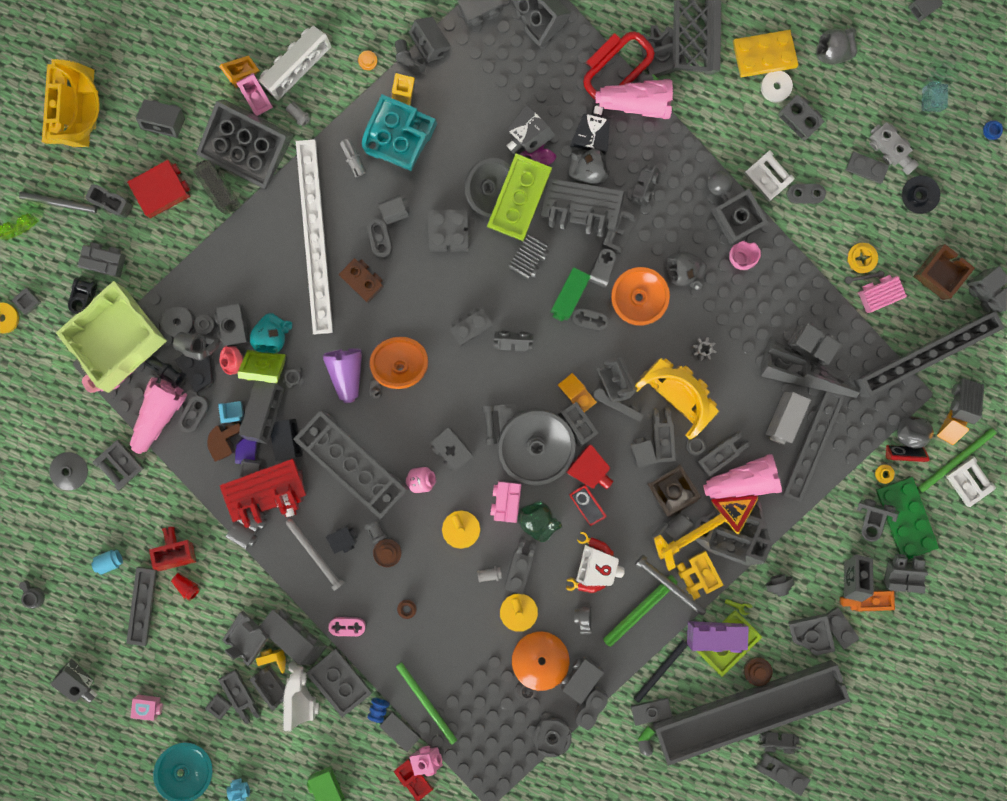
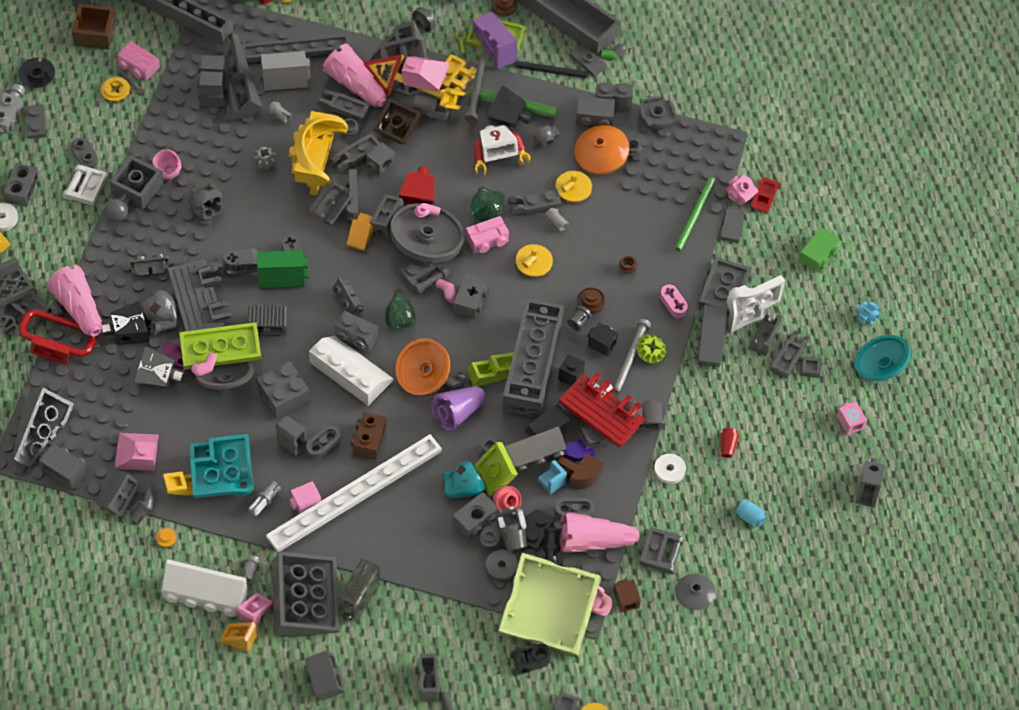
camera: 120 degrees left, 30 degrees down
(32, 596) = (824, 560): dark grey piece -> none
(92, 409) = (626, 595): none -> reddish brown brick
(101, 260) = (486, 658): dark grey brick -> none
(141, 606) = (769, 467): dark grey plate -> none
(159, 188) = (390, 645): red brick -> none
(173, 553) = (706, 463): red brick -> none
(183, 525) = (665, 475): none -> white piece
(245, 639) = (738, 370): dark grey piece -> none
(269, 656) = (740, 346): yellow plate -> none
(318, 576) = (644, 350): none -> lime gear
(324, 491) = (571, 370): none -> black brick
(331, 191) = (304, 497): none -> bright pink brick
(367, 424) = (491, 370): none -> lime slope
(378, 710) = (726, 246): blue bush -> none
(420, 480) = (512, 304): bright pink head -> none
(438, 303) = (349, 369): none -> white slope
(462, 76) = (136, 451): none -> bright pink slope
(465, 375) = (400, 312): none -> clear green piece
(470, 434) = (448, 289): none -> bright pink arm
(501, 172) = (206, 367): none -> bright pink arm
(560, 459) = (425, 209): none -> bright pink arm
(587, 505) = (450, 178): slope -> none
(629, 601) = (508, 109): none -> black torso
(652, 289) = (249, 211): orange dish -> none
(706, 543) = (424, 73): none -> bright pink slope
(750, 390) = (276, 109): none -> light grey pin

